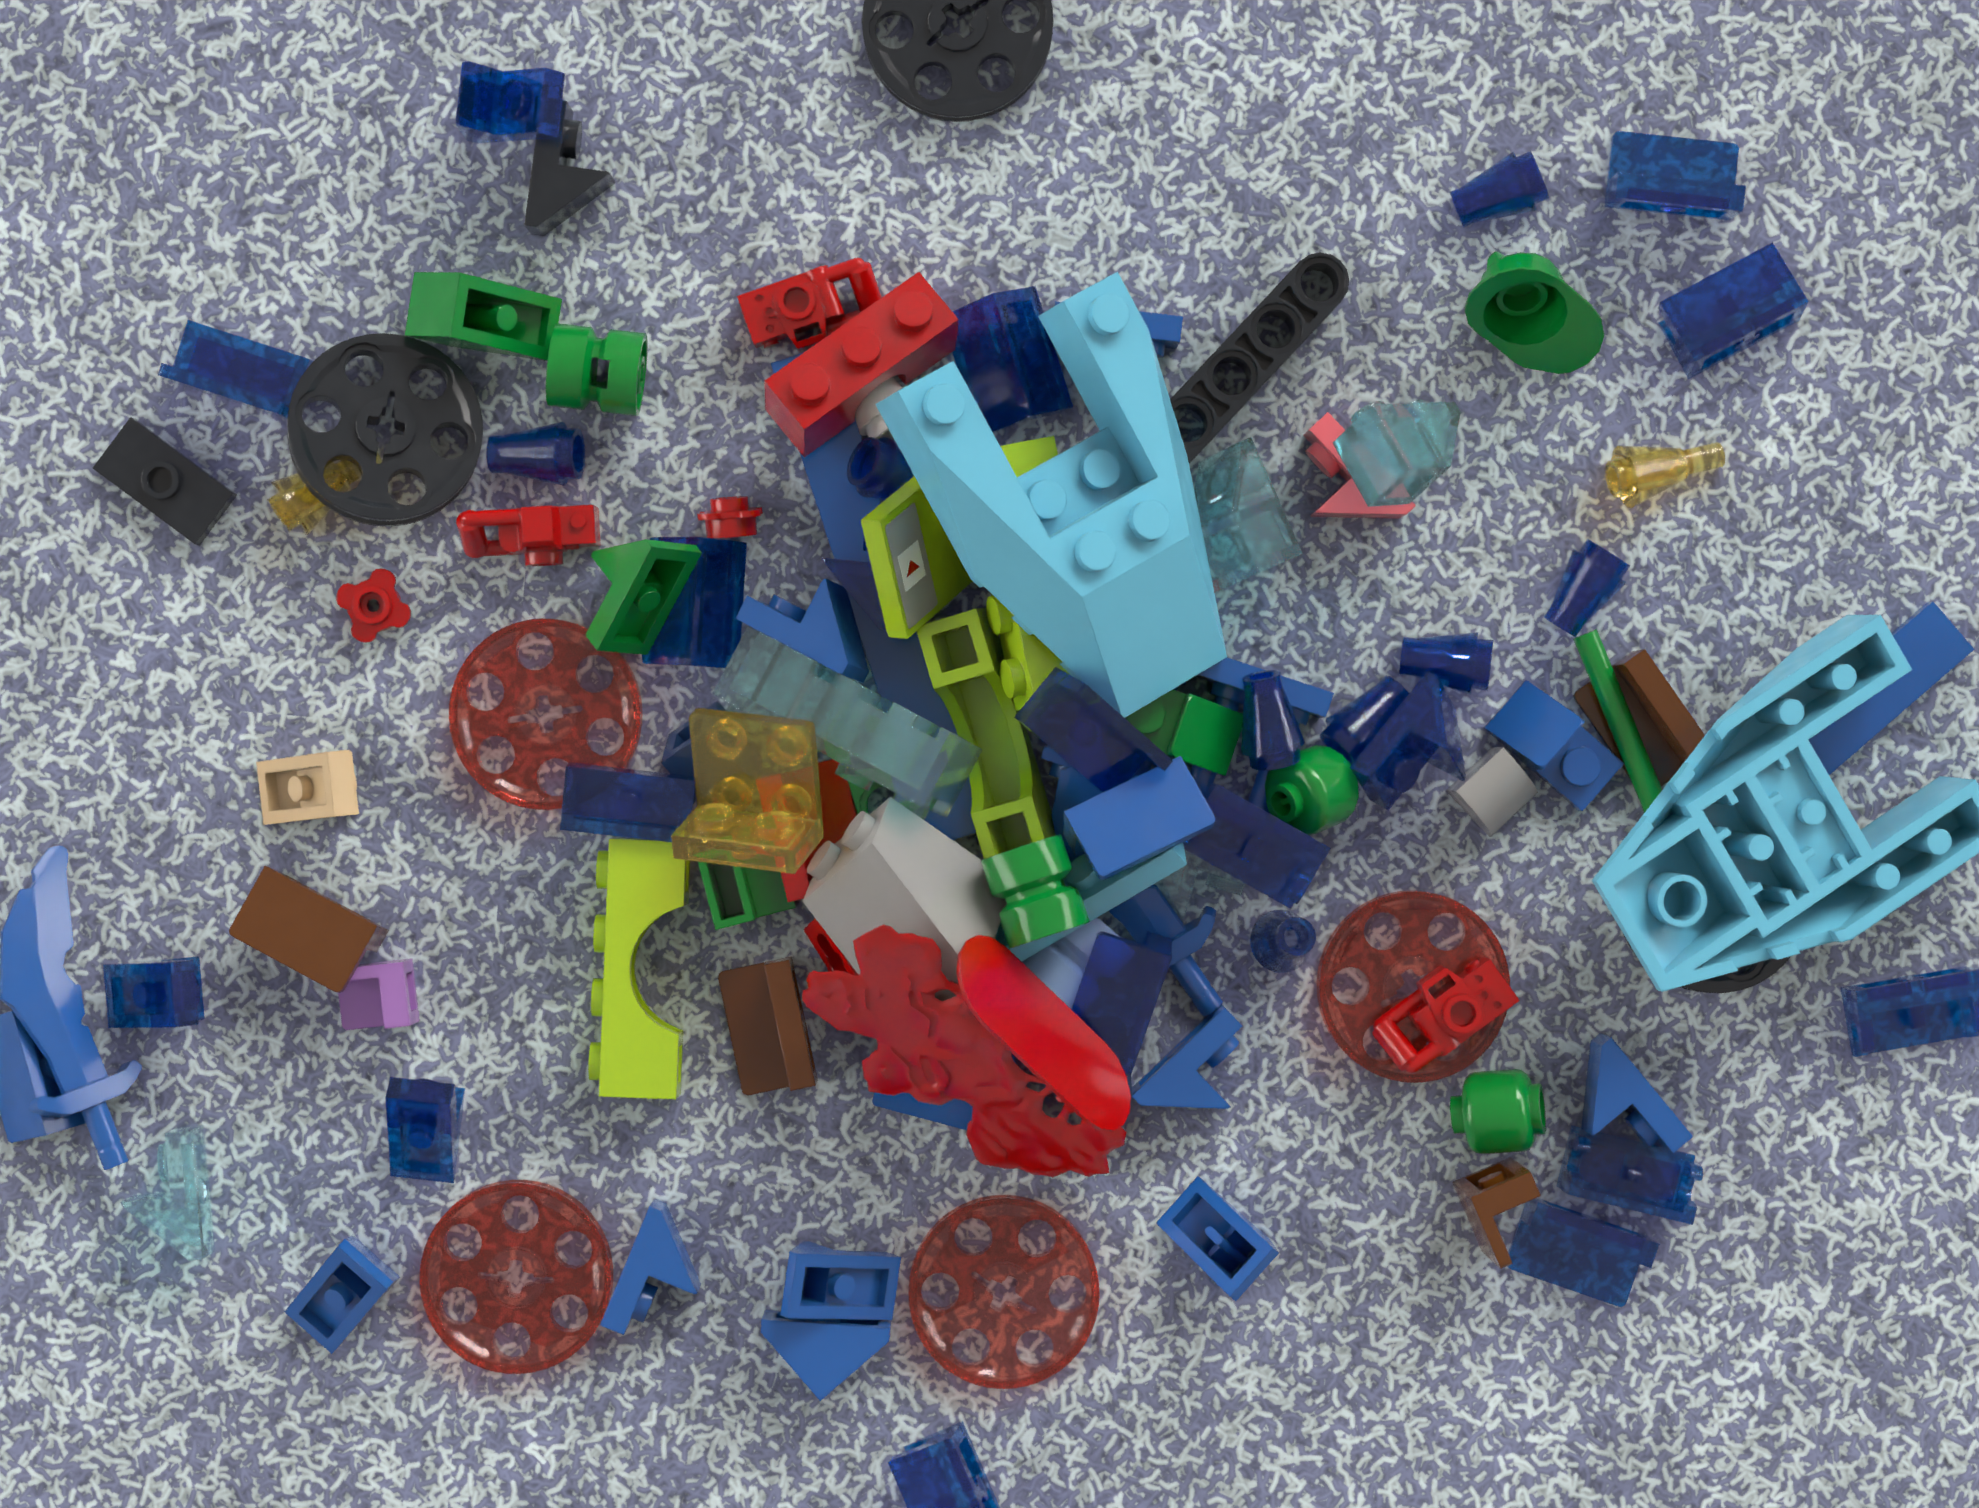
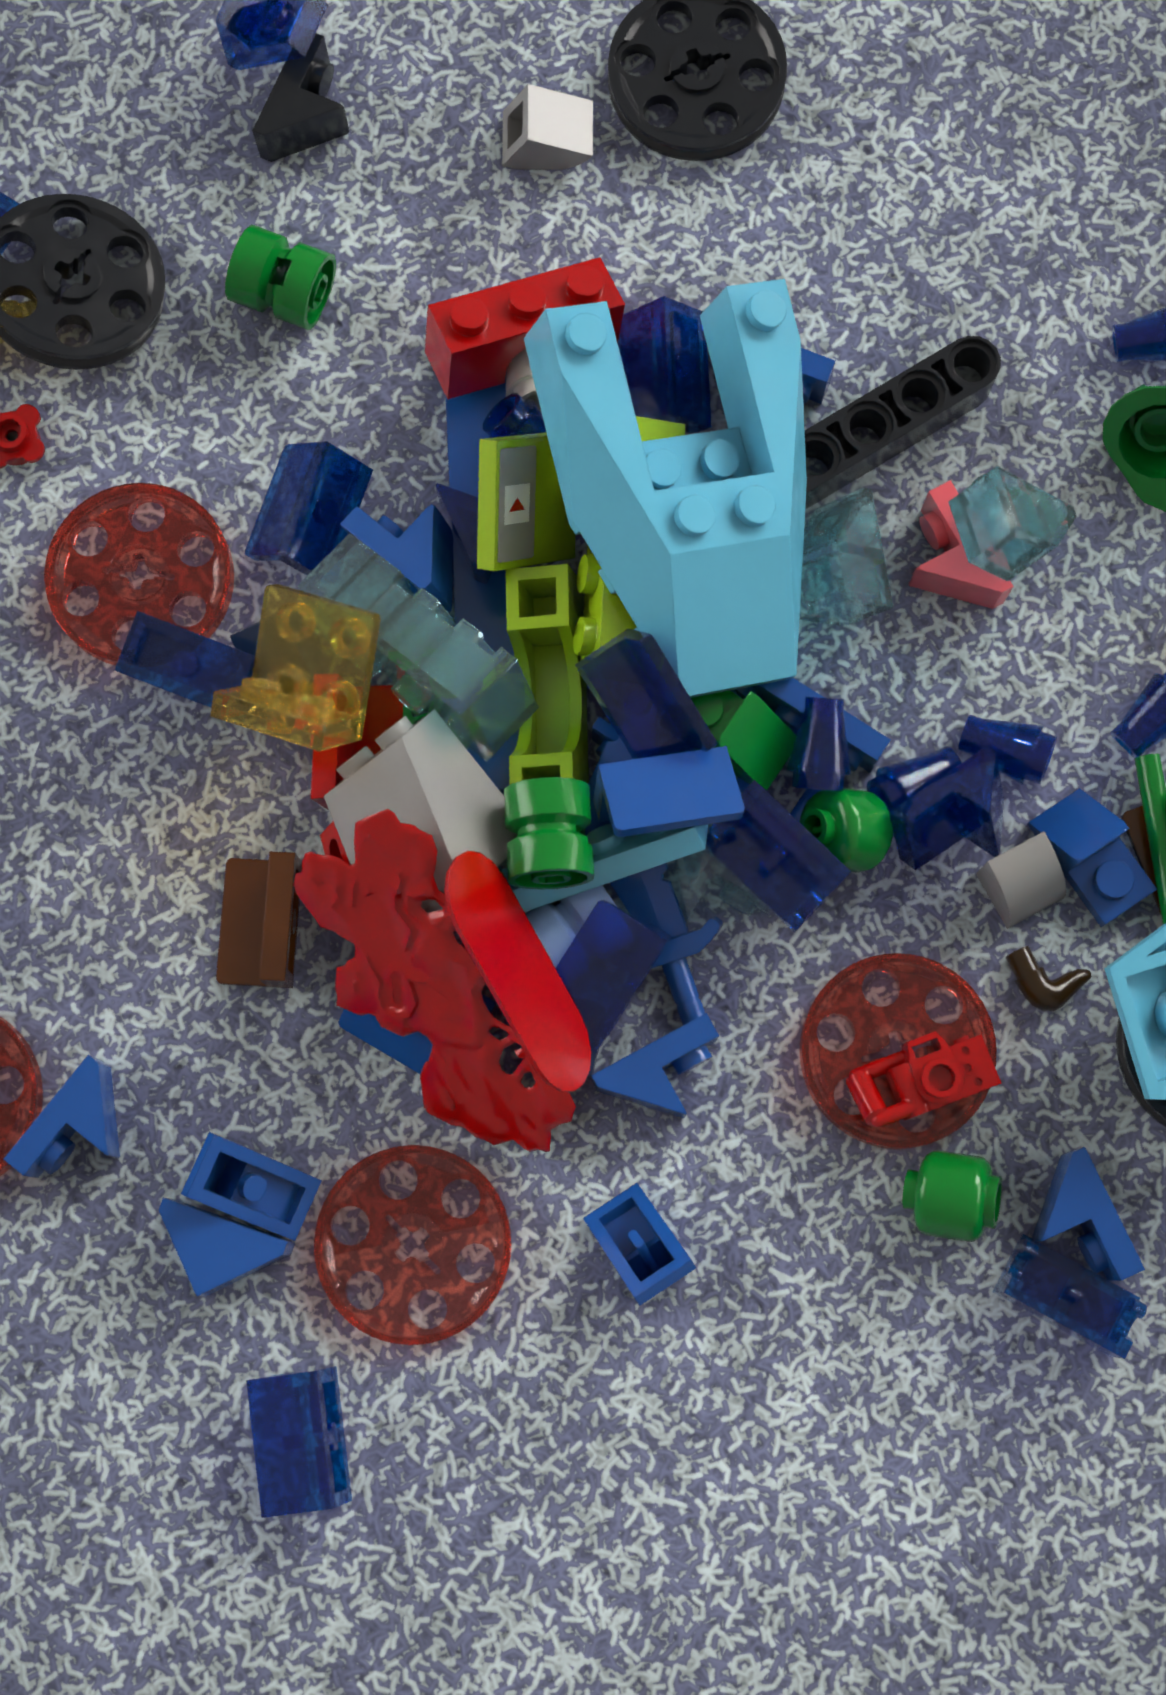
camera: 15 degrees right, 10 degrees down
(481, 315) = (188, 202): green slope -> none
(535, 531) = (177, 405): red piece -> none
(540, 453) = (206, 340): clear blue cone -> none
(637, 1048) = (177, 755): lime arch -> none
(643, 591) = (260, 481): green slope -> none
(730, 517) = (365, 439): red plate -> none
(742, 893) = (272, 777): green piece -> none
(806, 303) = (483, 264): red piece -> none
(821, 133) = (546, 130): none -> brick
(1270, 946) = (773, 978): clear blue cone -> none
(1489, 1194) = (908, 1278): reddish brown panel -> none
(1531, 888) = (1037, 987): none -> dark brown animal
(1579, 1251) = (1000, 1362): clear blue panel -> none

